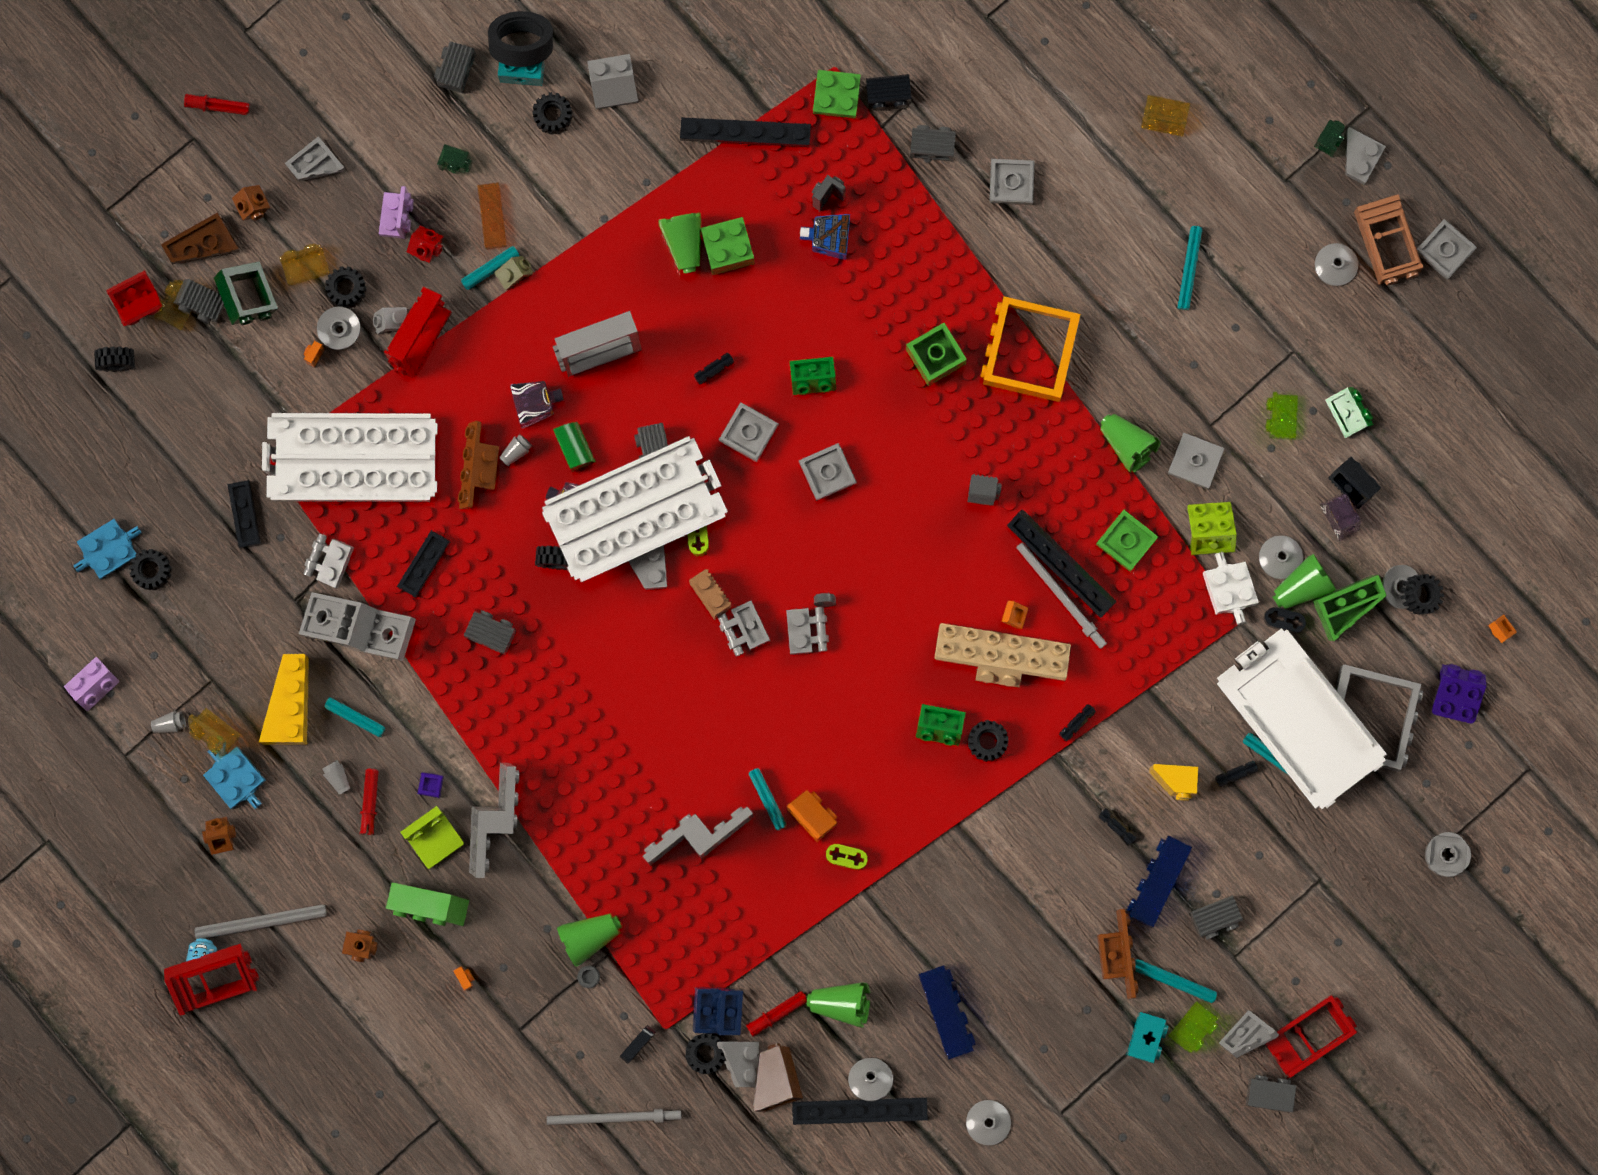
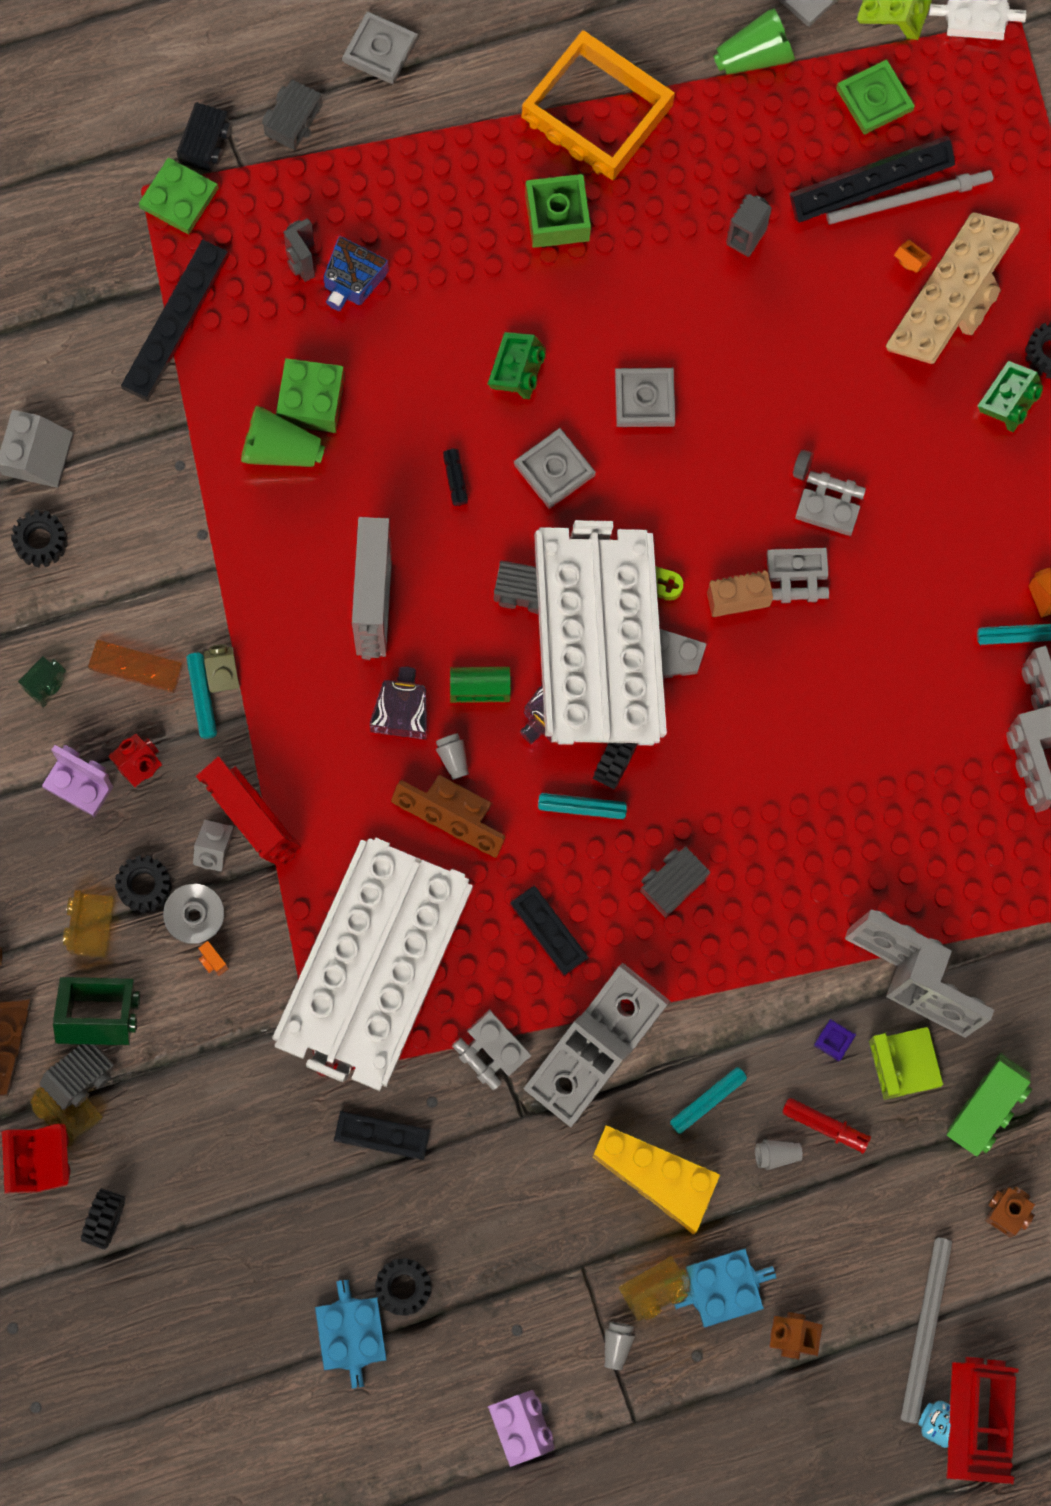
camera: 75 degrees left, 5 degrees down
(518, 550) = (582, 806): none -> teal axle

